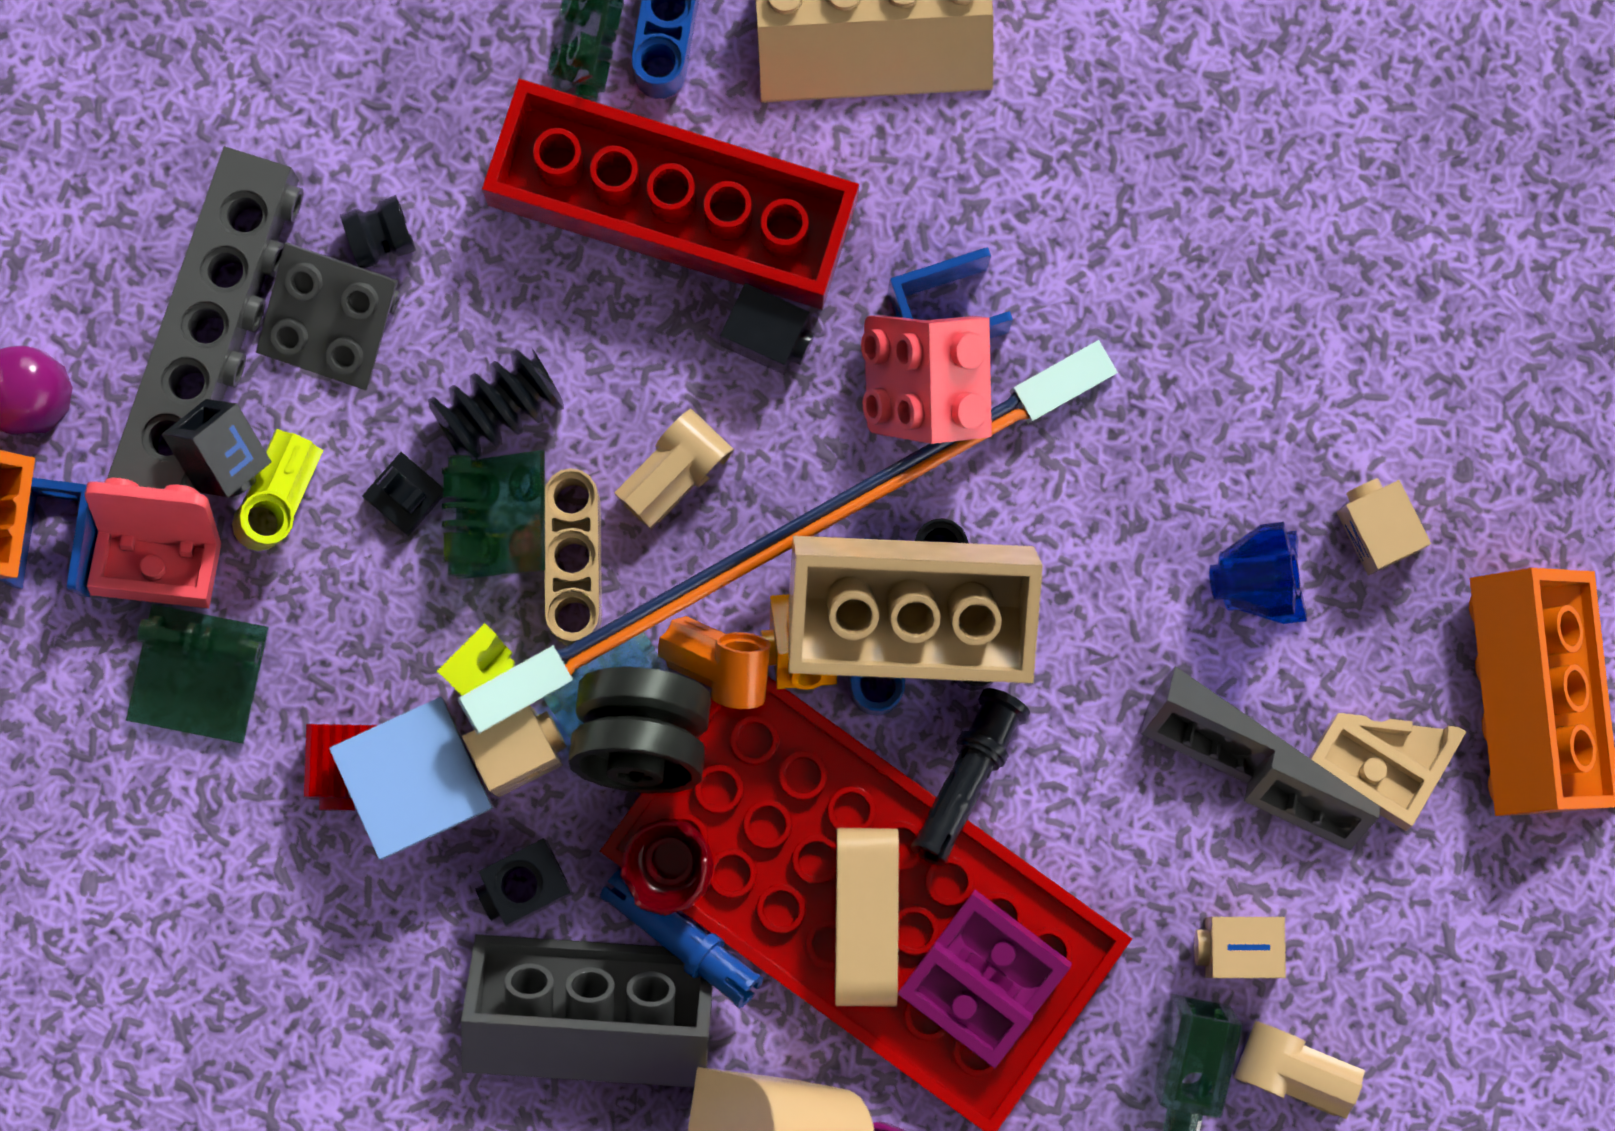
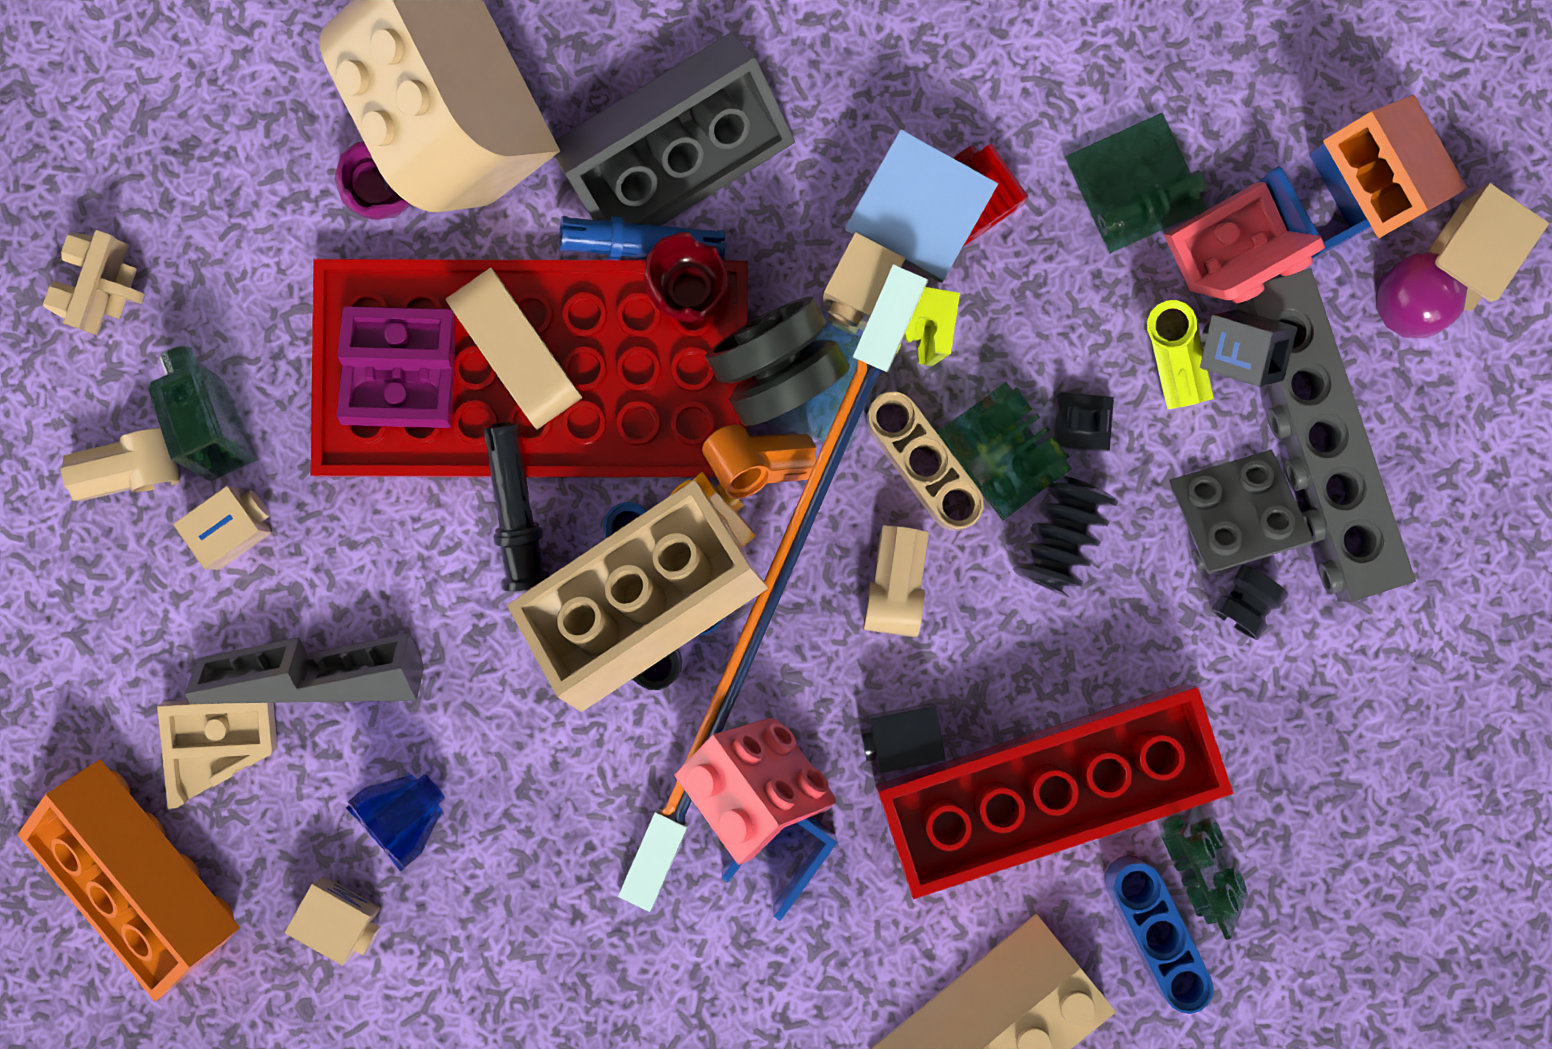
camera: 150 degrees right, 5 degrees up
(550, 880) = (778, 221): black brick -> none

